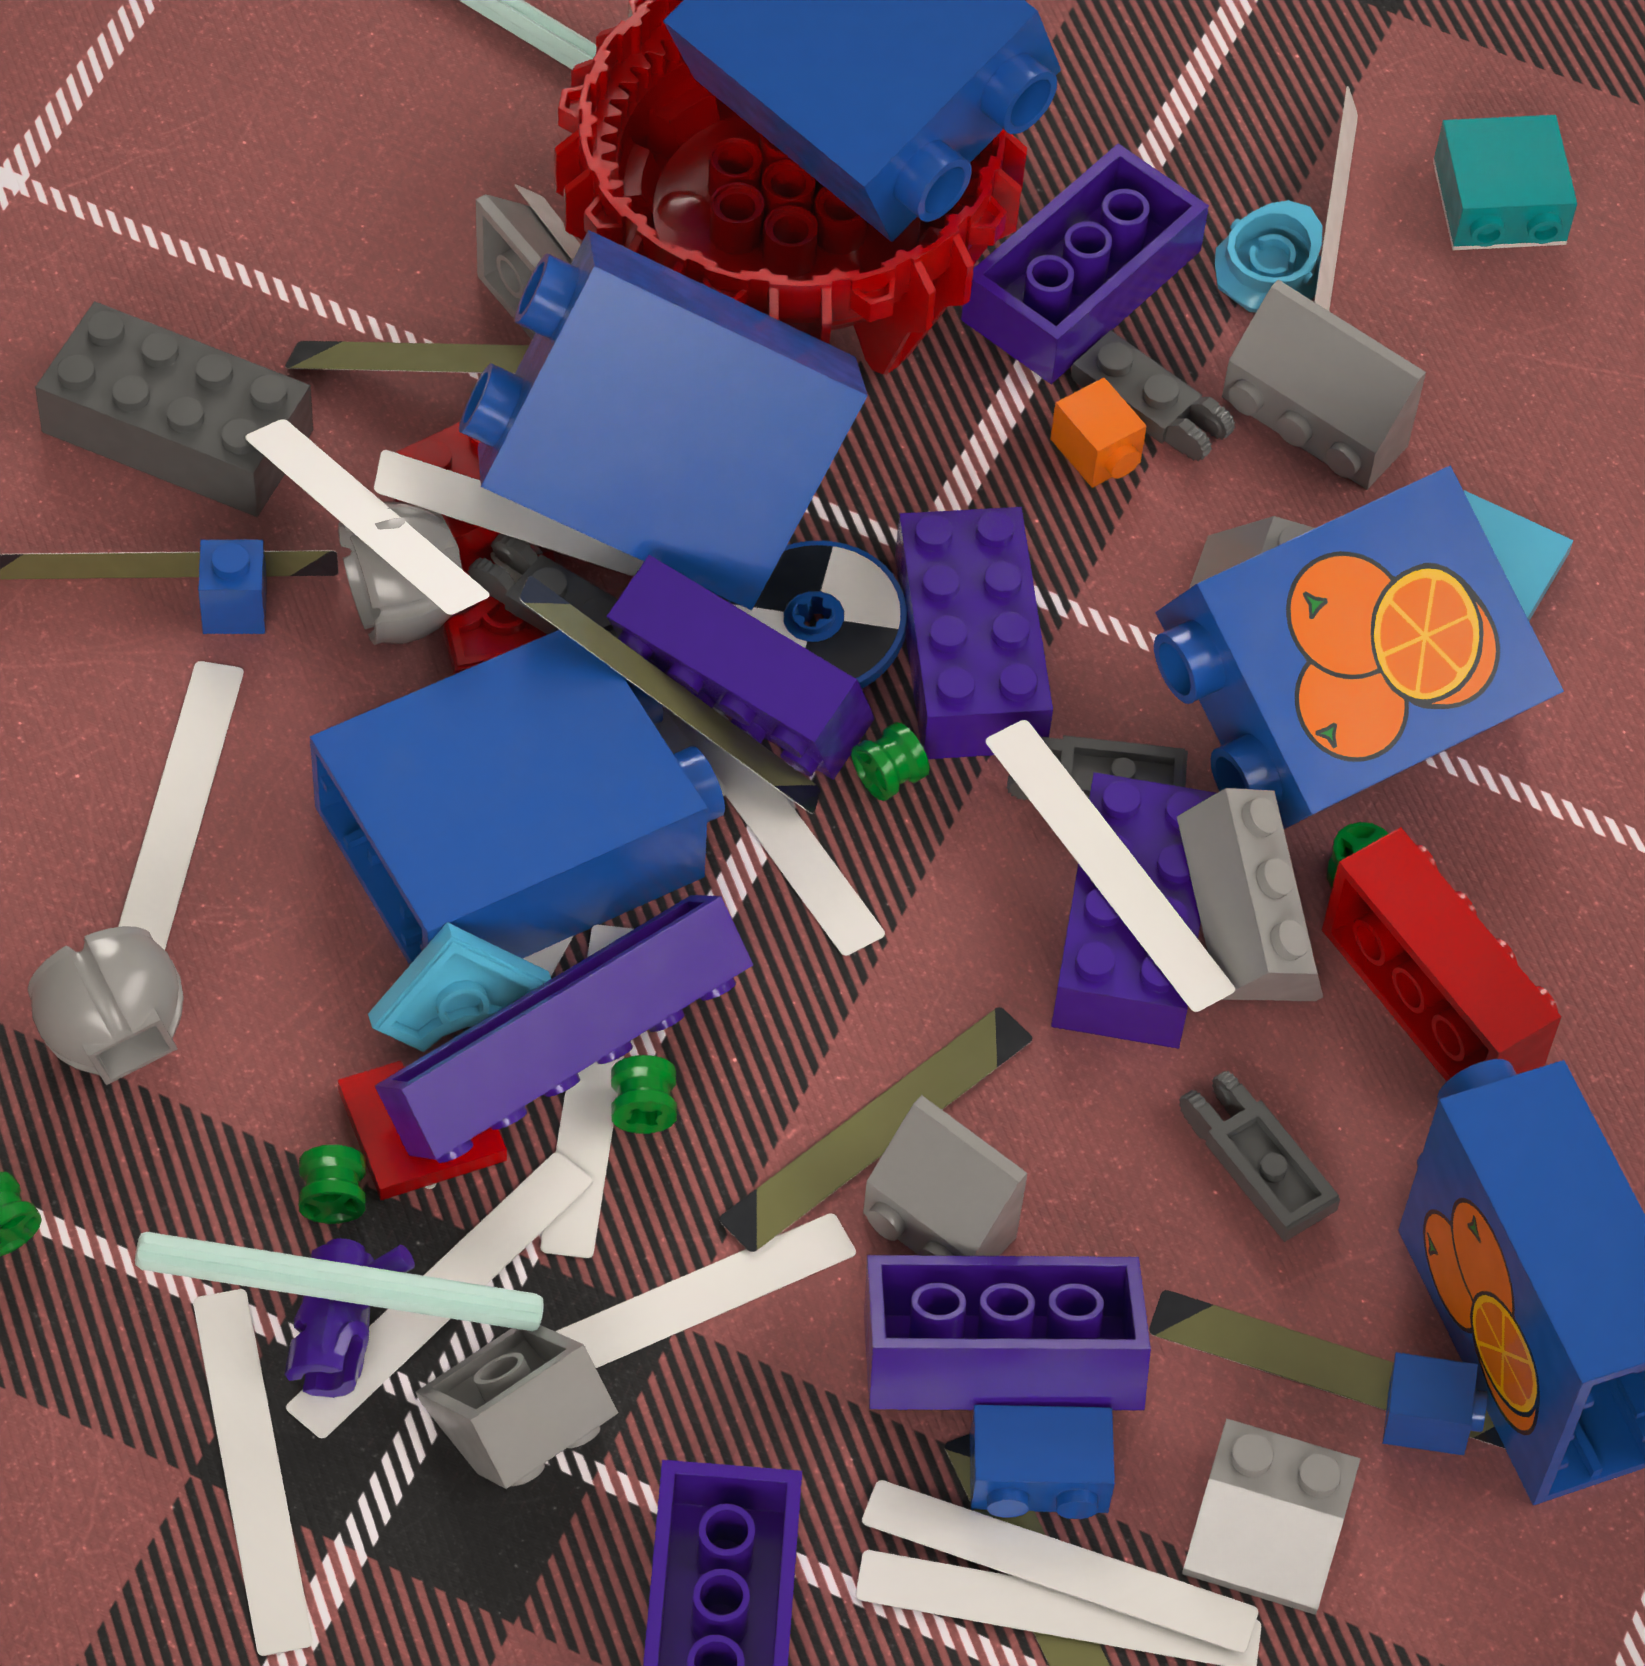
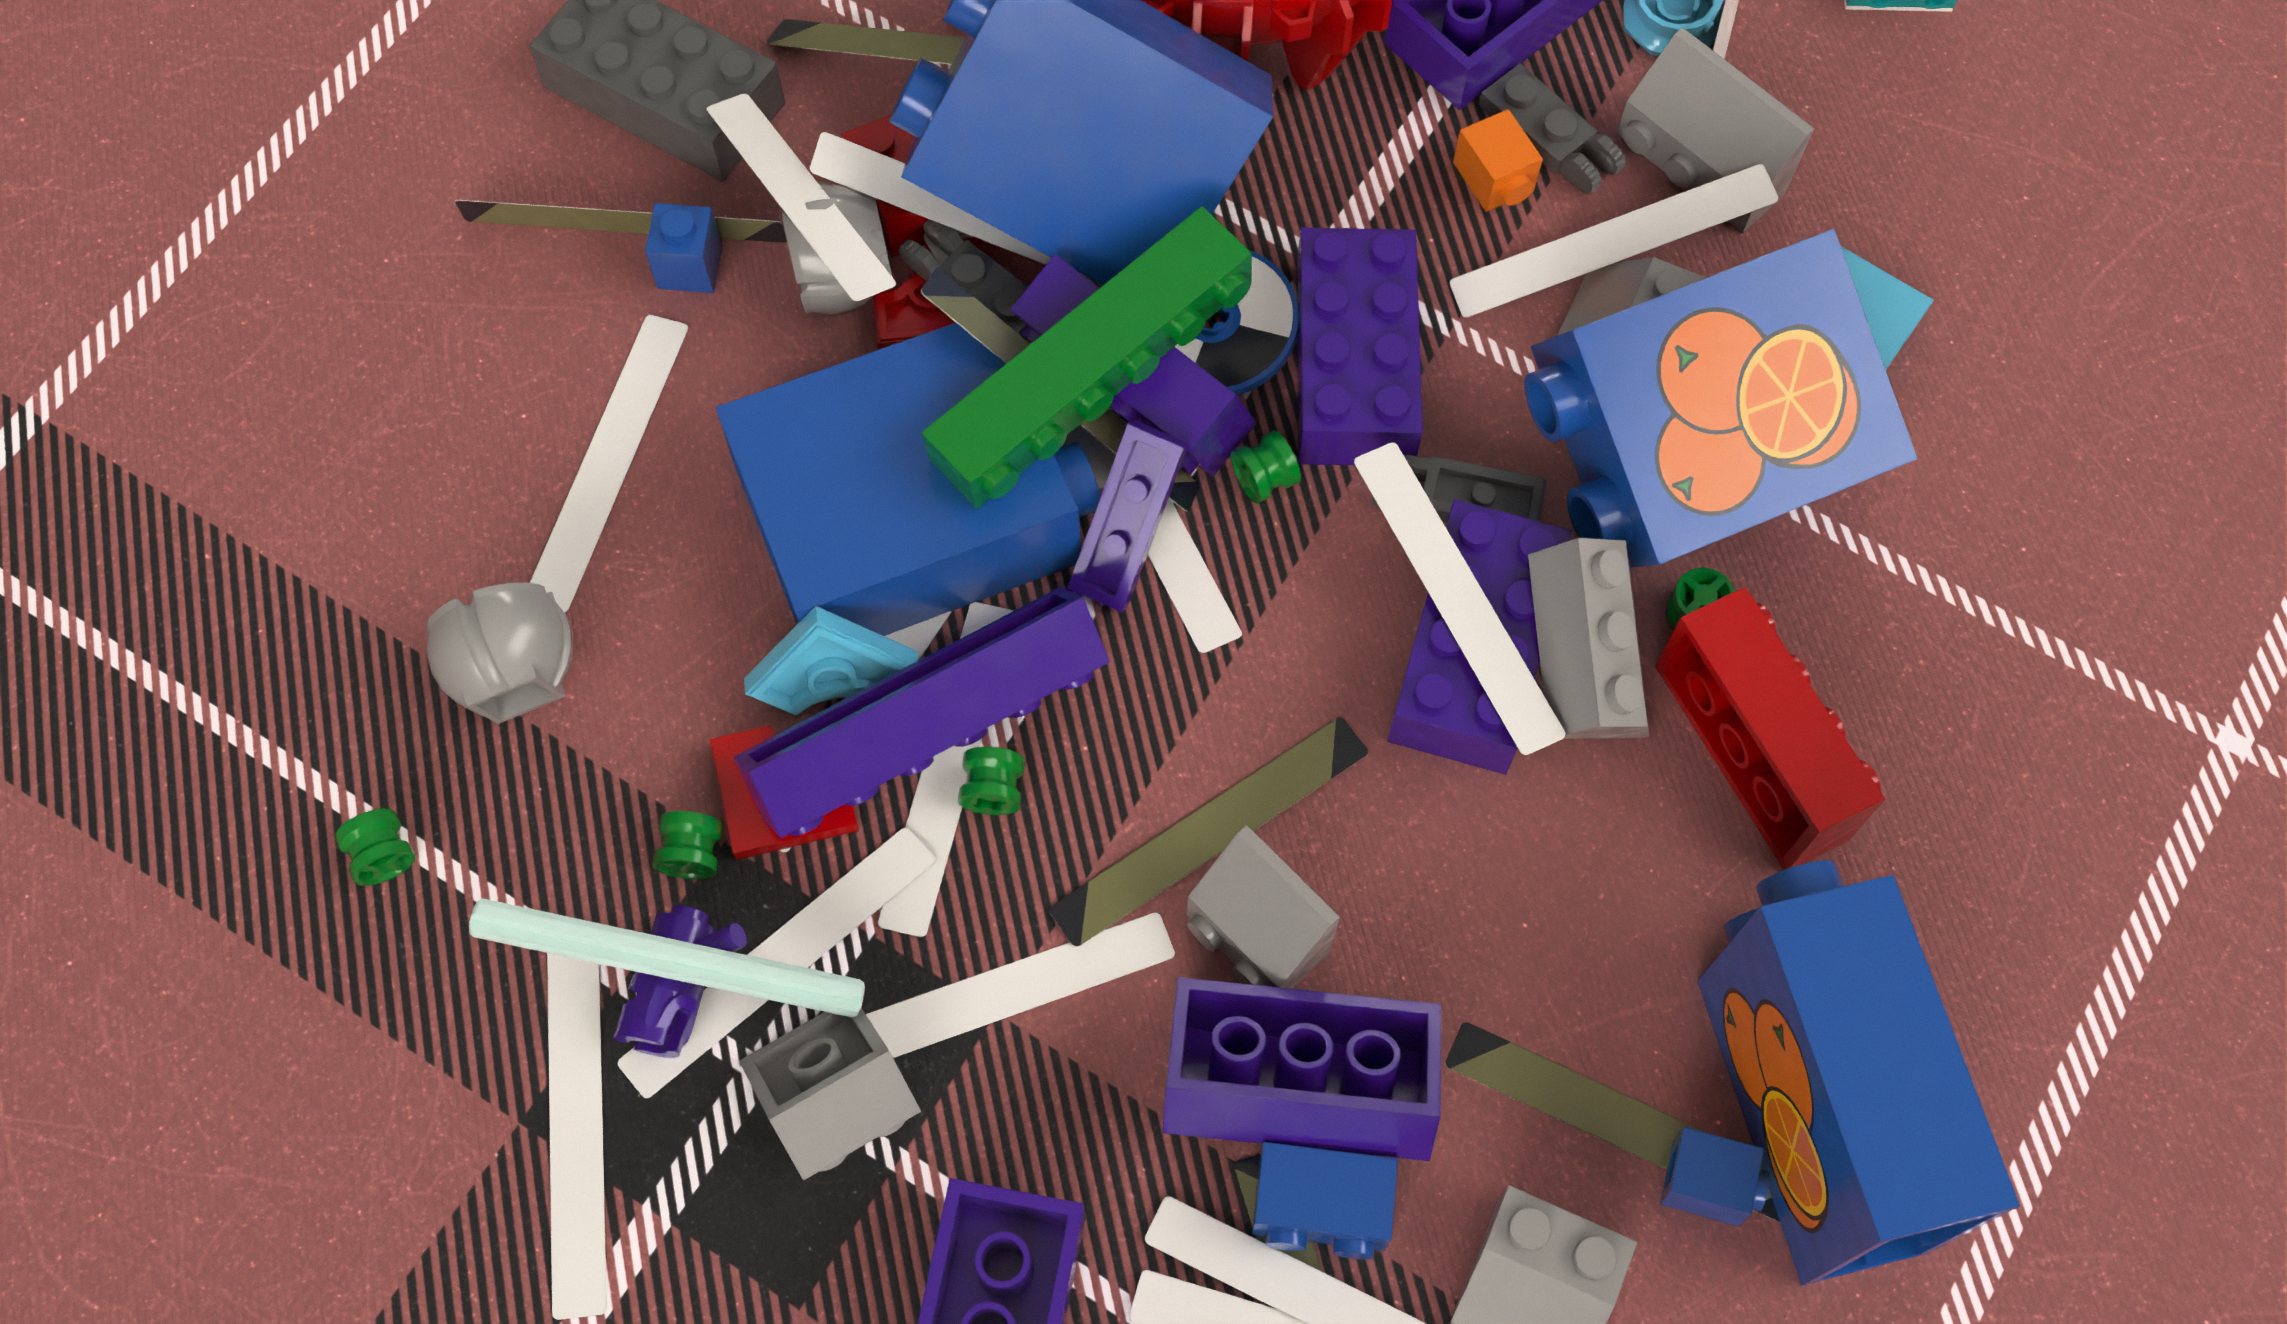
camera: 10 degrees right, 10 degrees up
(702, 653) = (1089, 358): none -> green brick
(755, 815) = (1128, 515): none -> plate
(1229, 505) = (1614, 240): none -> white sticker
(1261, 1157) = (1573, 899): dark grey hinge -> none

